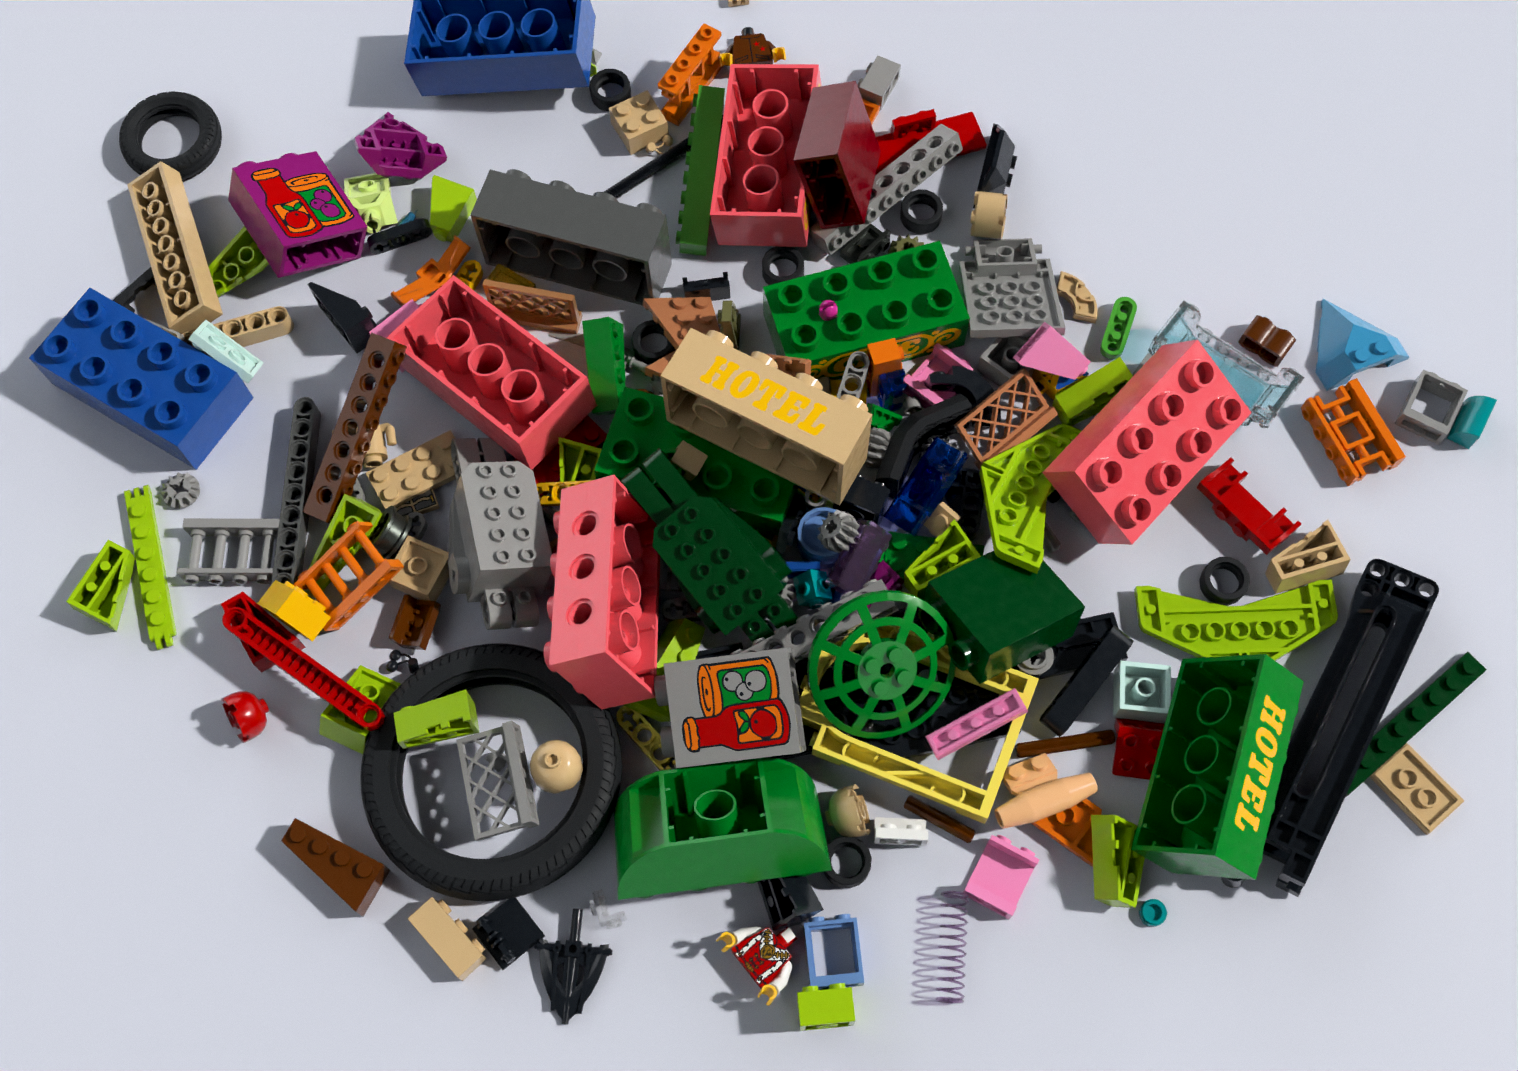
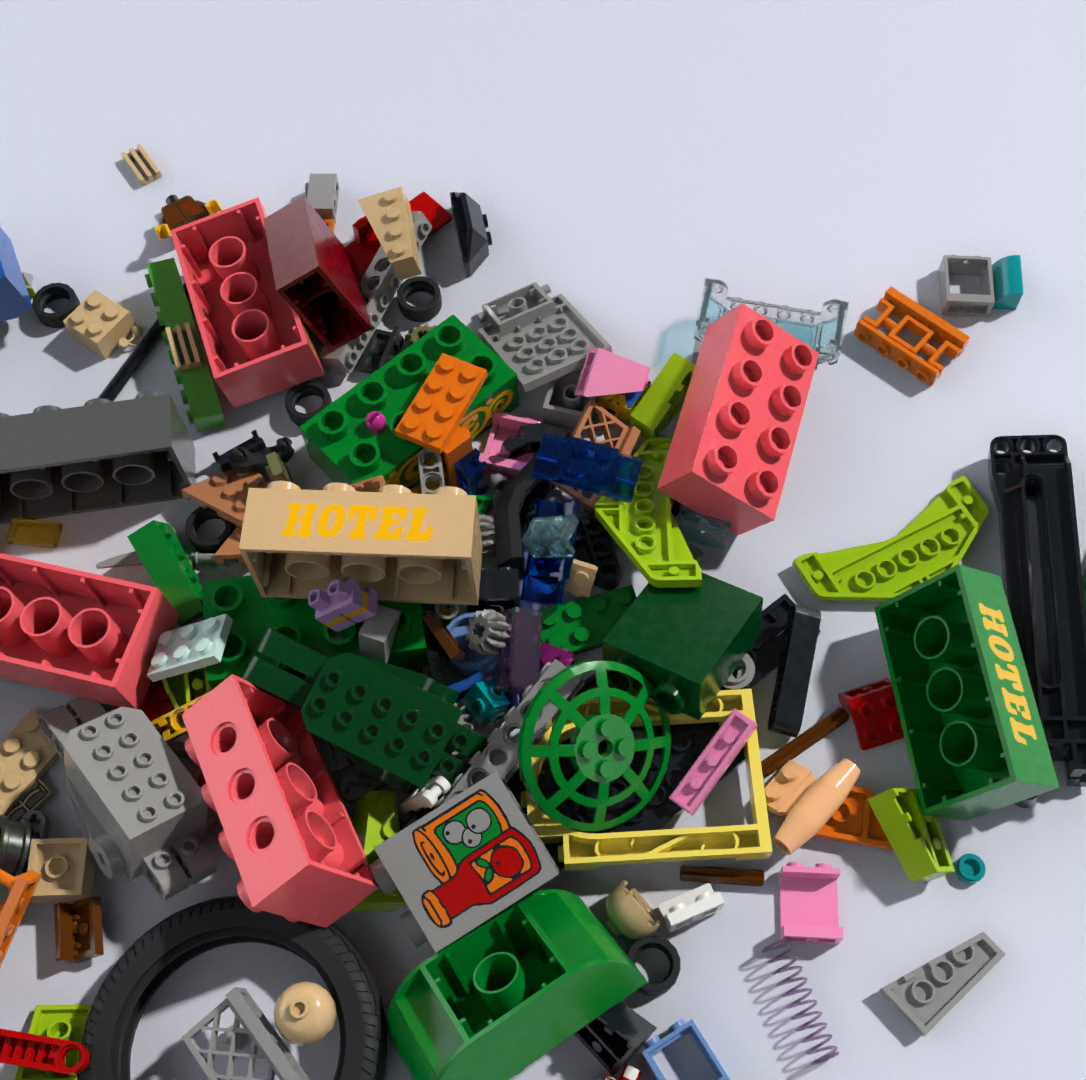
camera: 25 degrees left, 5 degrees down
(395, 655) = (72, 975): black piece -> none
(436, 720) = (149, 1027): lime wedge -> none
(538, 314) = (78, 551): medium nougat fence -> none
(592, 437) = (190, 647): none -> light aqua plate
(648, 747) = (391, 945): light yellow beam -> none
(688, 459) = (302, 625): tan panel -> none
(694, 67) = (130, 253): orange fence -> none
(698, 156) = (178, 331): none -> tan tile
(708, 297) = (246, 461): none -> black piece
(725, 643) = (424, 797): none -> white plate
(728, 456) = (343, 604): none -> lavender hips
(747, 492) = (378, 634): none -> light grey slope
(801, 520) = (445, 637): none -> reddish brown tile
(890, 317) = (441, 403): none -> orange plate
(925, 138) = (394, 227): none -> tan wedge
(930, 473) = (550, 536): none -> clear light blue bracket
(945, 554) = (602, 610): lime wedge -> none
(989, 215) = (485, 276): tan brick -> none
(992, 426) = (587, 466): none -> clear blue piece
(1069, 524) = (704, 529): none -> clear light blue panel
(1076, 990) = (940, 984): none -> light grey wing
(1078, 296) = (605, 318): tan tile -> none
(1121, 321) = (655, 323): bright green plate -> none
(1141, 691) = (851, 657): light aqua brick -> none
(1231, 565) = (872, 502): black tyre -> none
(1243, 511) = (854, 447): red bracket -> none
(1267, 340) = (794, 287): reddish brown brick -> none
(1309, 560) = (936, 466): tan wedge -> none
(1351, 346) = (869, 263): dark azure wedge -> none

